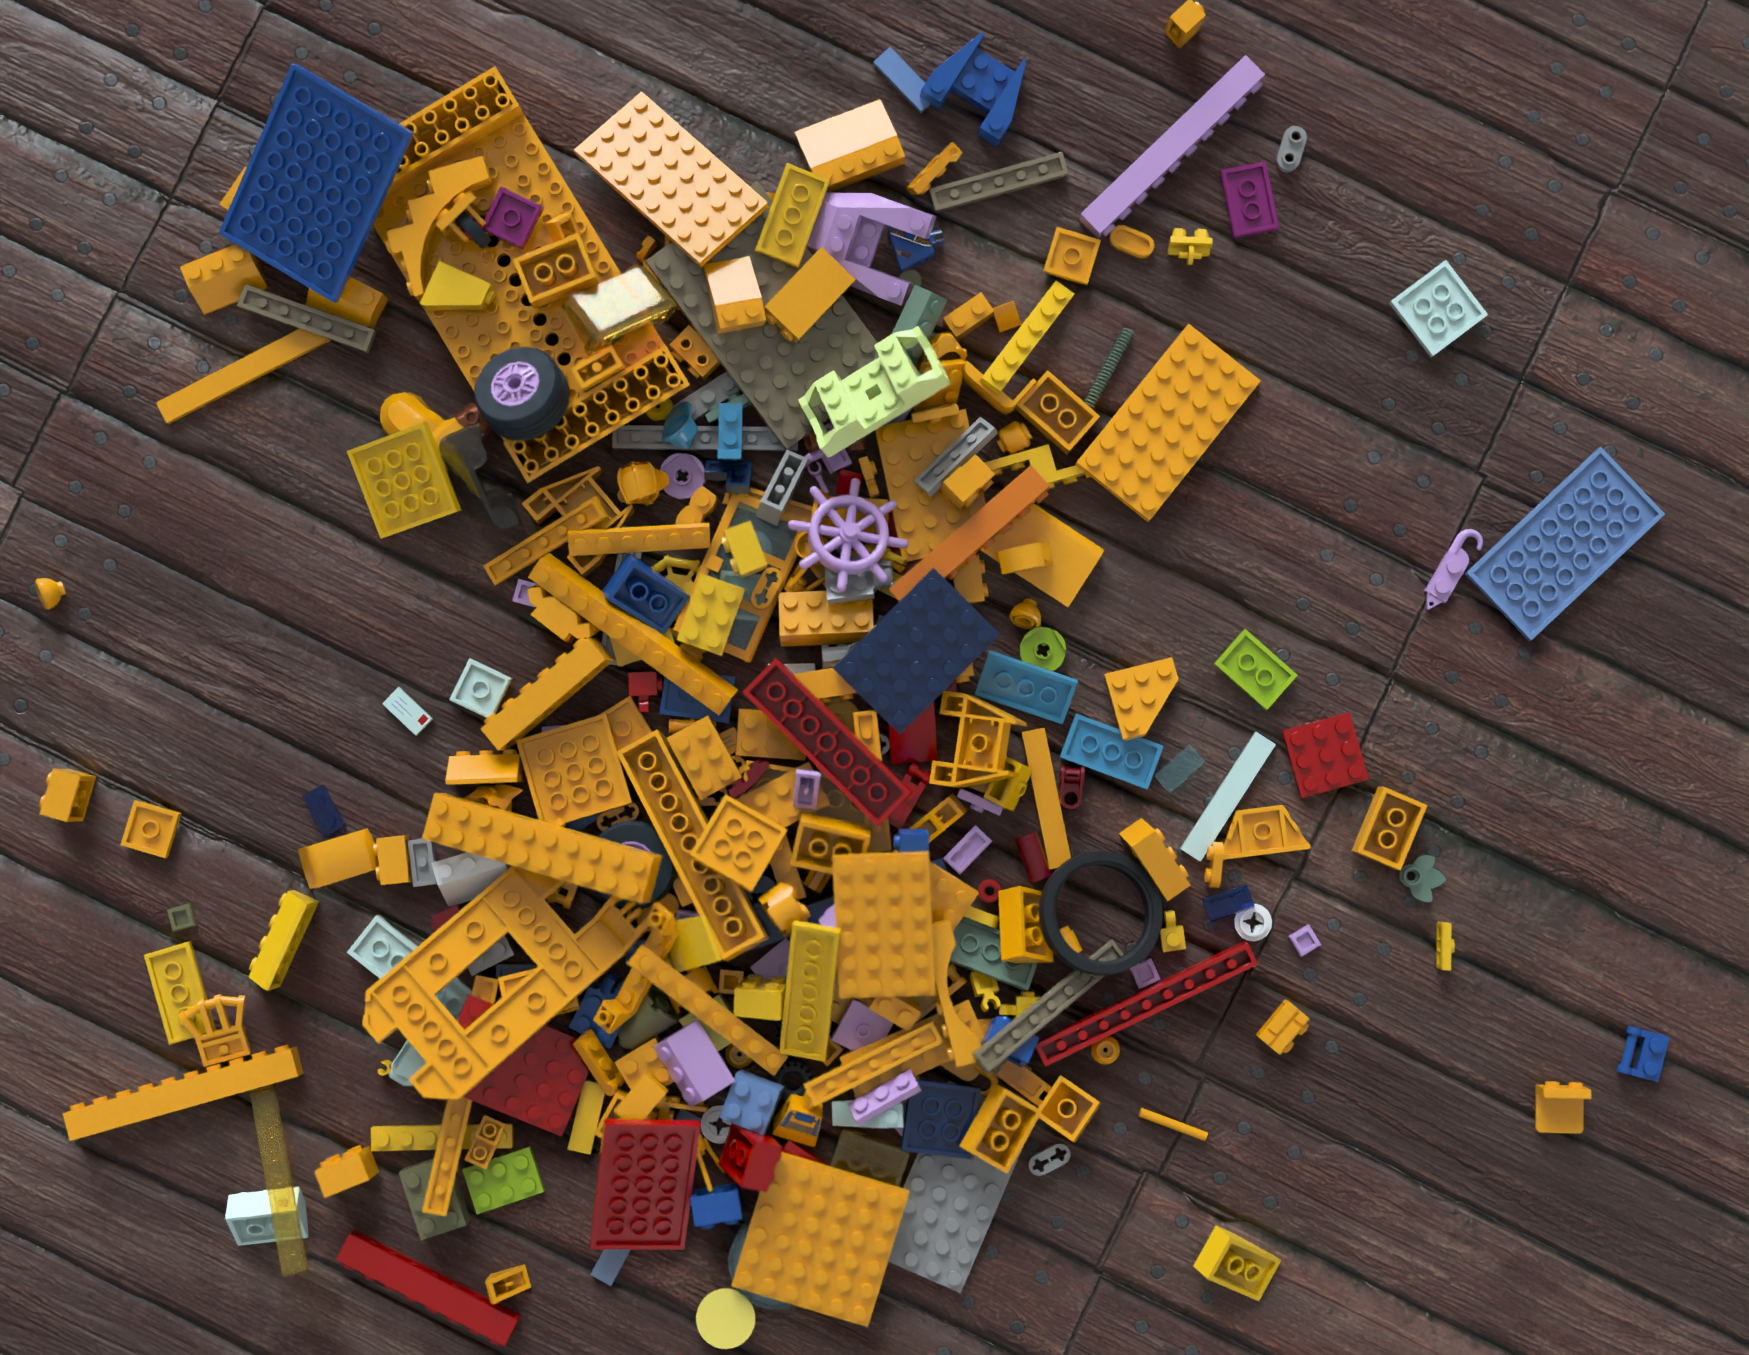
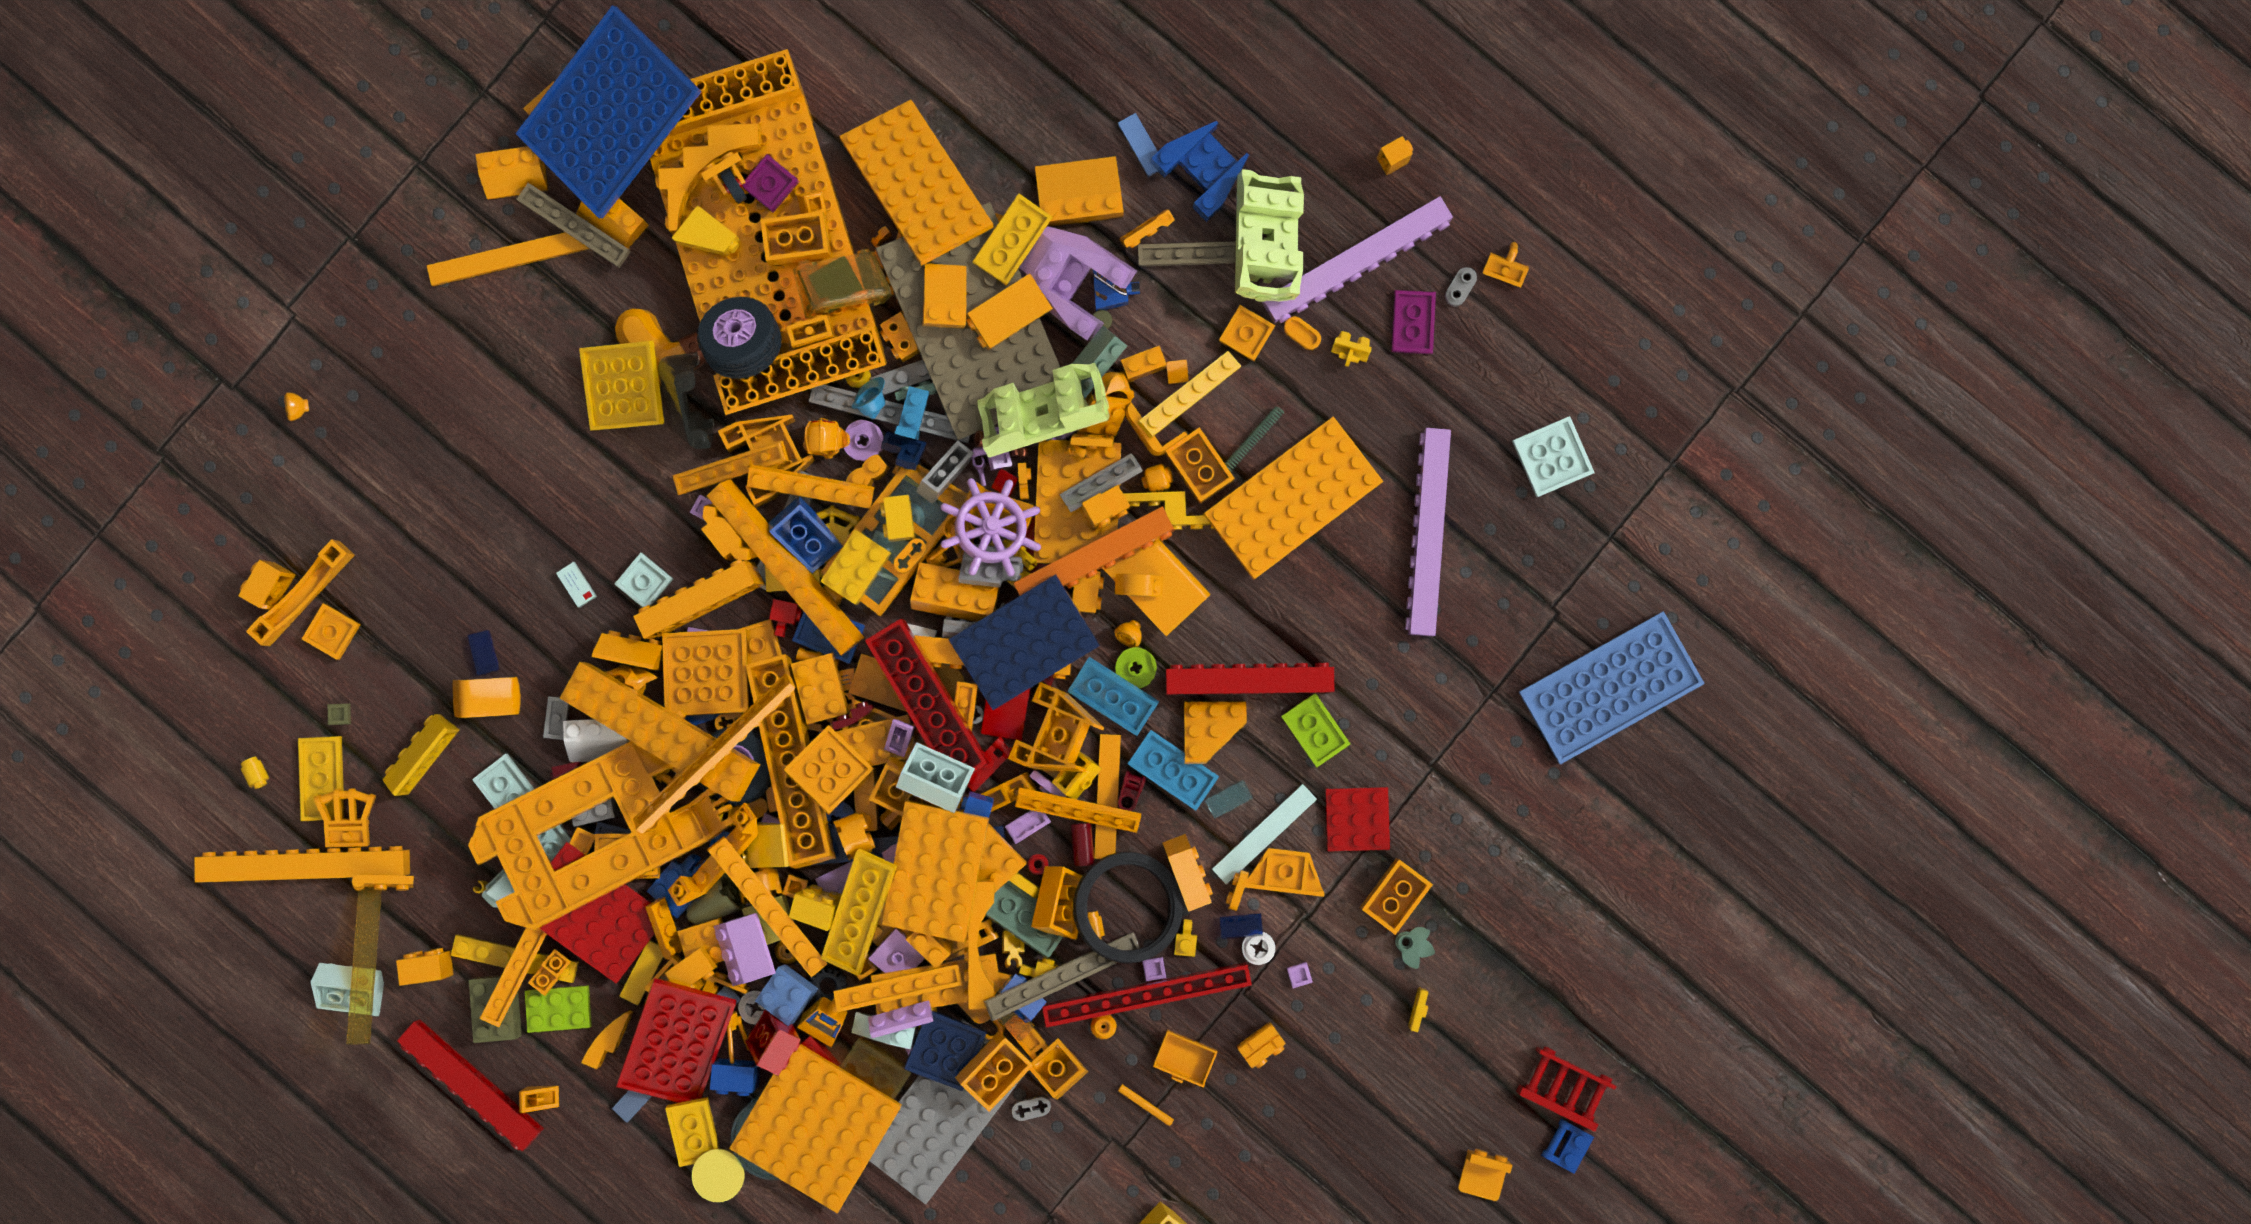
camera: 15 degrees right, 0 degrees up
(87, 832) = (324, 569): none -> light orange arch
(105, 1004) = (254, 772): none -> yellow brick
(276, 1089) = (381, 882): none -> light orange plate
(393, 860) = (531, 709): light orange brick -> none
(566, 1202) = (607, 1041): none -> light orange slope
(610, 855) = (714, 753): none -> light orange plate
(684, 1275) = (692, 1129): none -> yellow plate
(859, 822) = (935, 777): none -> light aqua slope
(920, 429) = (1076, 451): none -> light orange tile
(1019, 820) = (1078, 810): none -> light orange tile
(1068, 114) = (1268, 209): none -> yellowish green piece
(1168, 633) = (1250, 680): none -> red brick
(1203, 1063) = (1185, 1058): none -> light orange container
(1324, 423) = (1429, 532): none -> lavender brick
(1336, 117) = (1506, 268): none -> light orange plate
(1450, 569) = (1506, 685): lavender plate -> none
(1633, 1013) = (1567, 1109): none -> red fence

